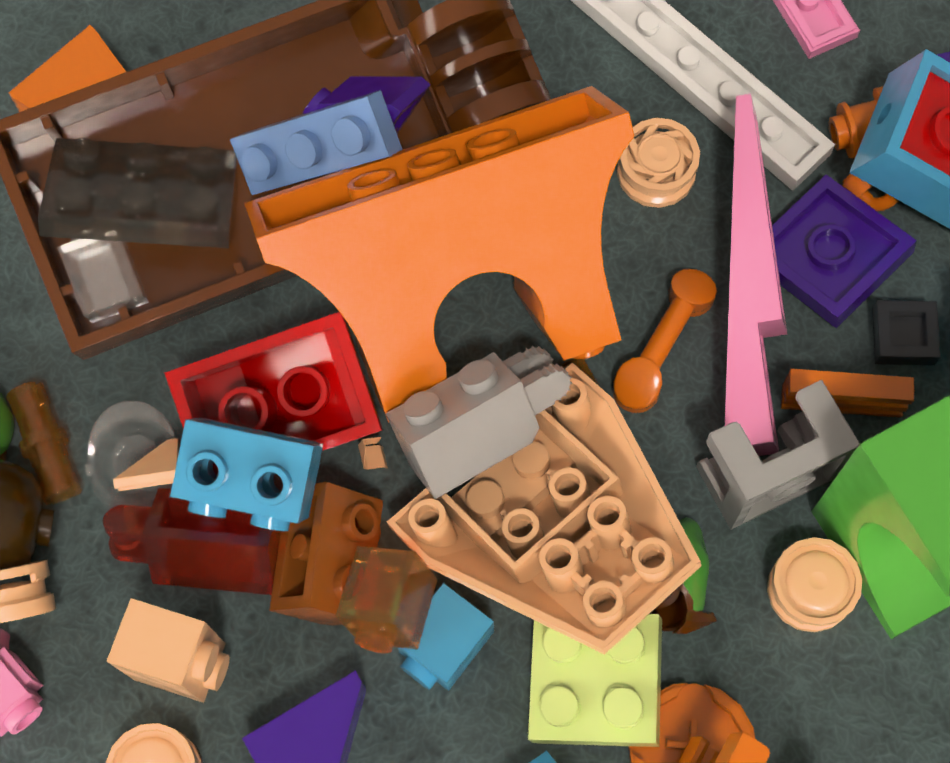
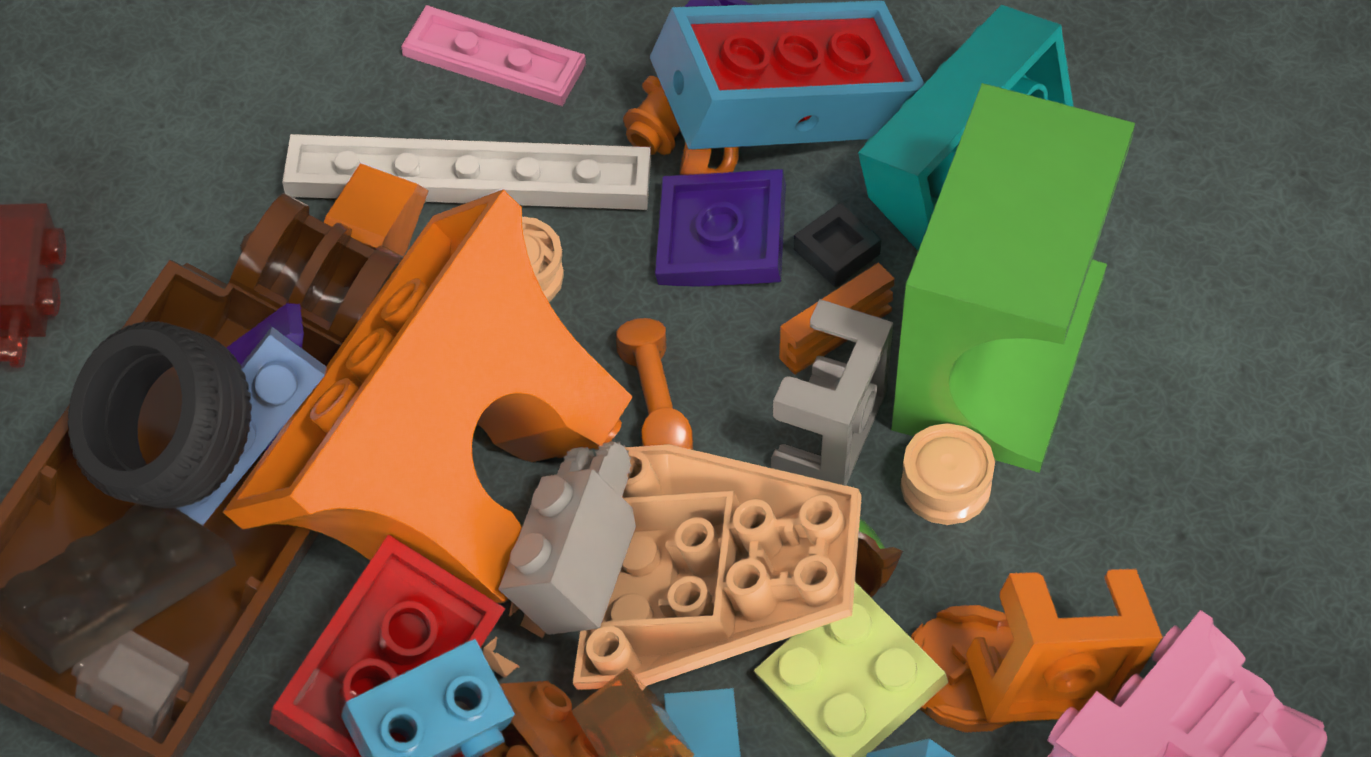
camera: 45 degrees left, 15 degrees down
(283, 117) = (108, 407): none -> black tyre
(582, 45) = (379, 208): none -> orange slope
(754, 289) = (687, 282): bright pink slope -> none

